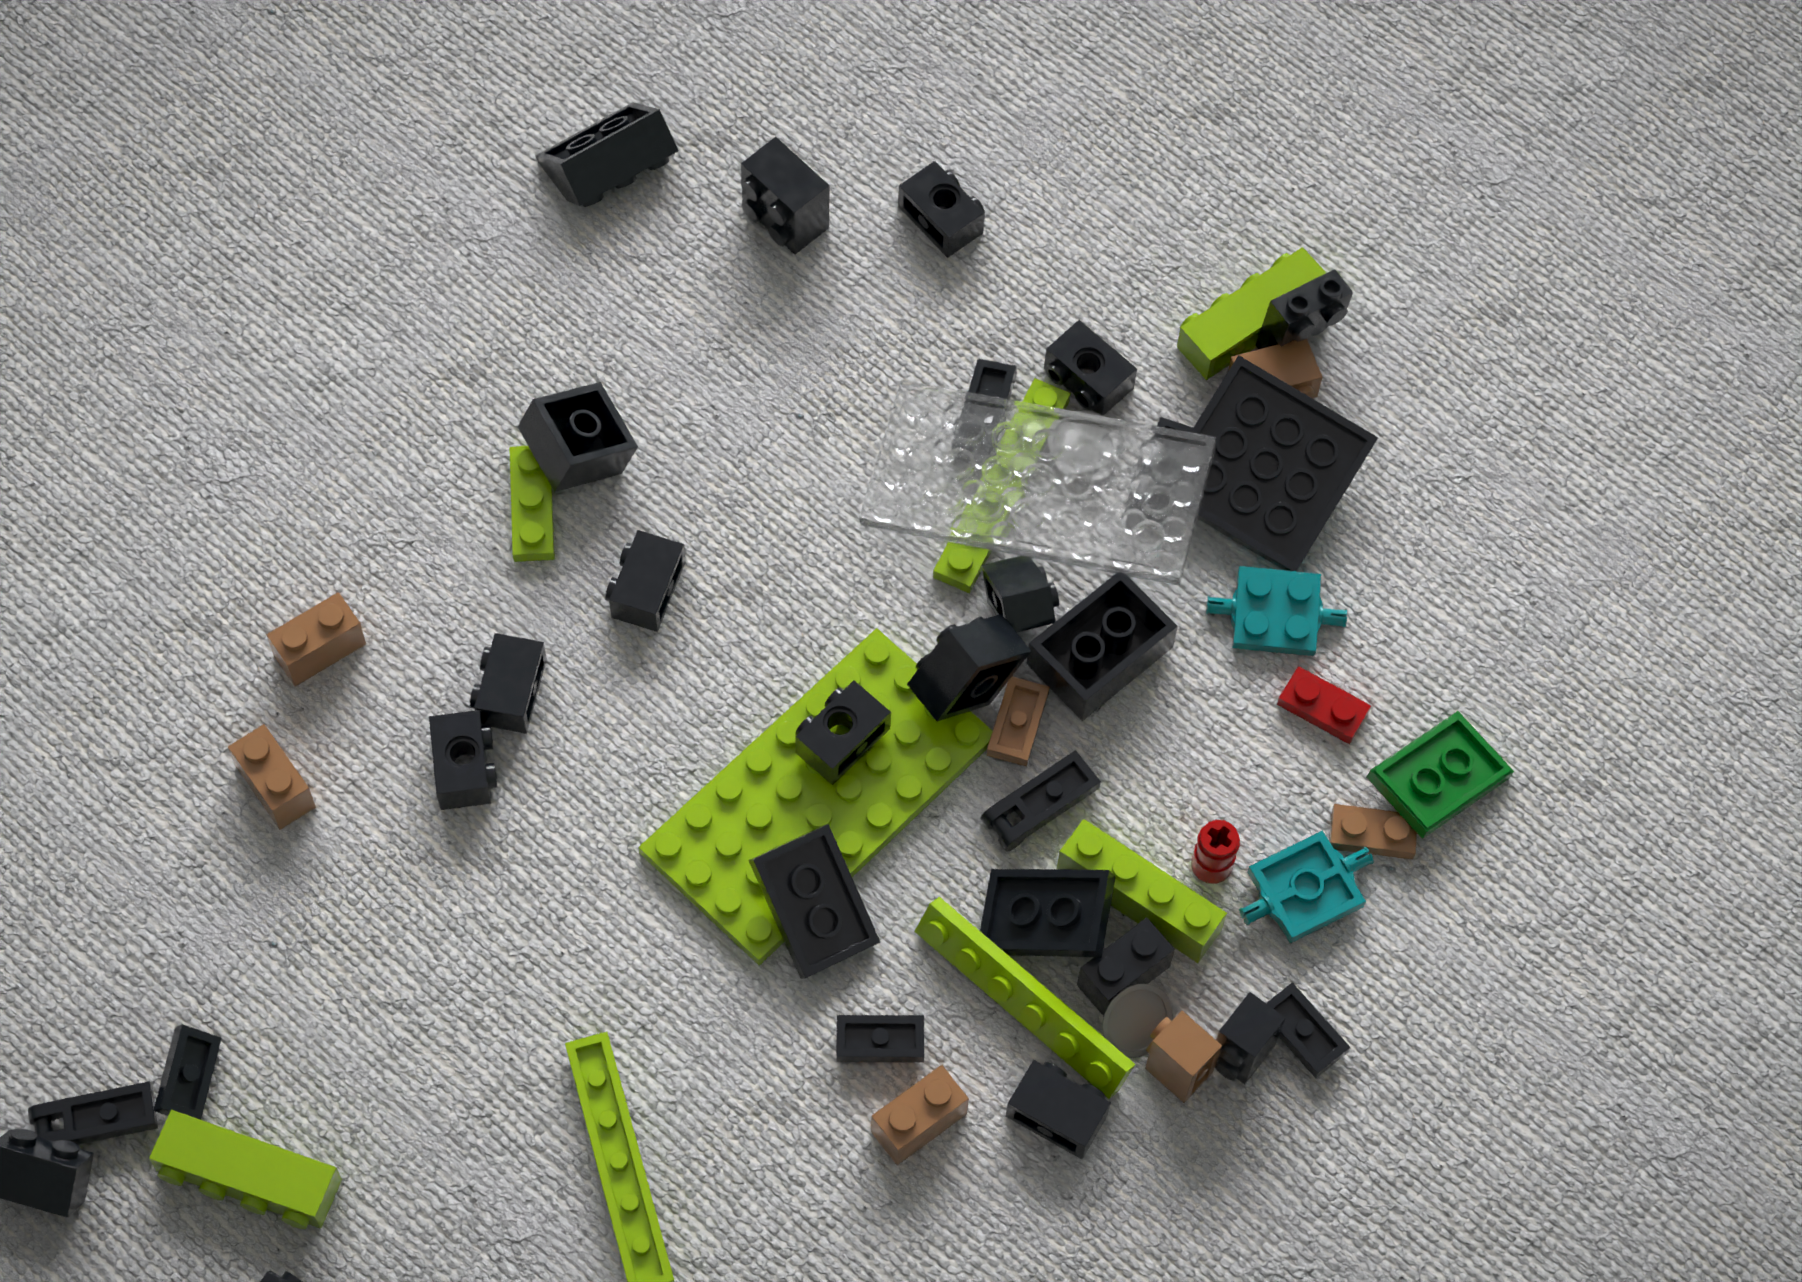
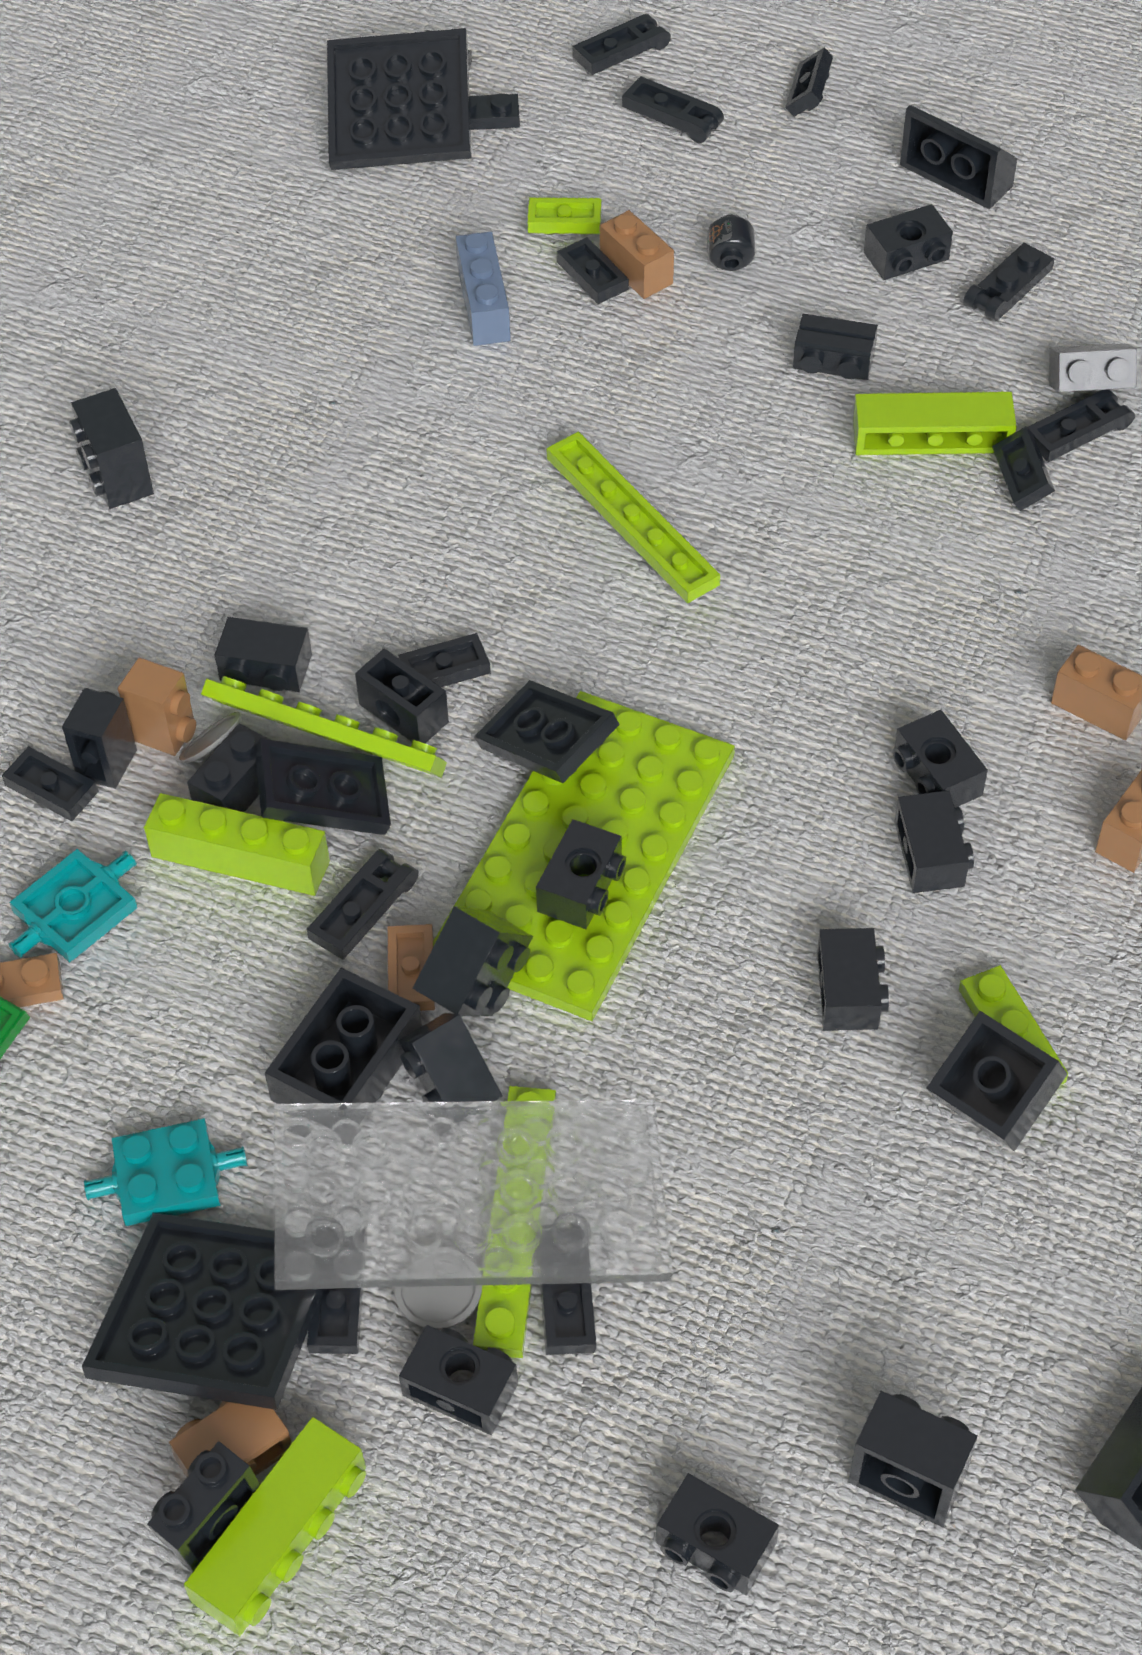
camera: 165 degrees right, 10 degrees down
(919, 1114) = (385, 611): medium nougat brick -> none
(938, 993) = (402, 697): none -> black brick
(1215, 851) = (170, 892): red piece -> none
(1323, 705) = (92, 1092): red plate -> none

